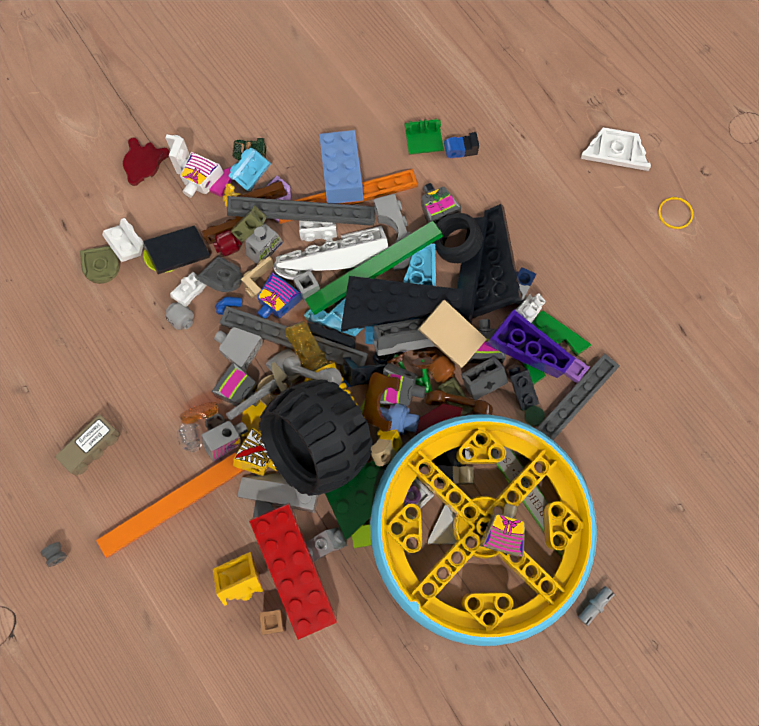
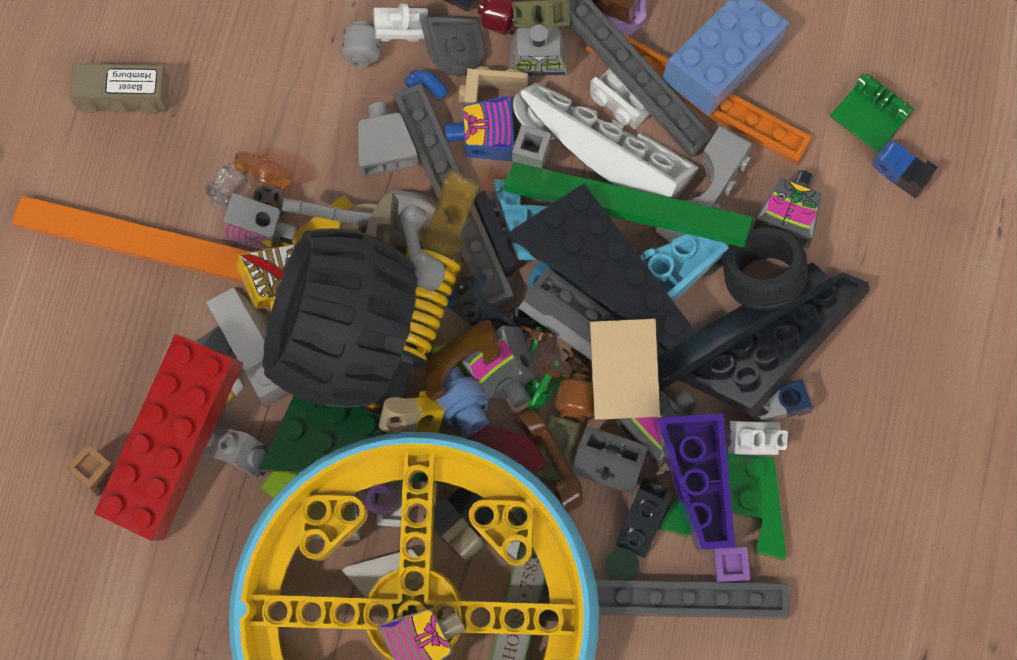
camera: 50 degrees right, 0 degrees up
(235, 386) = (333, 180): torso -> none
(237, 579) = (107, 386): yellow brick -> none

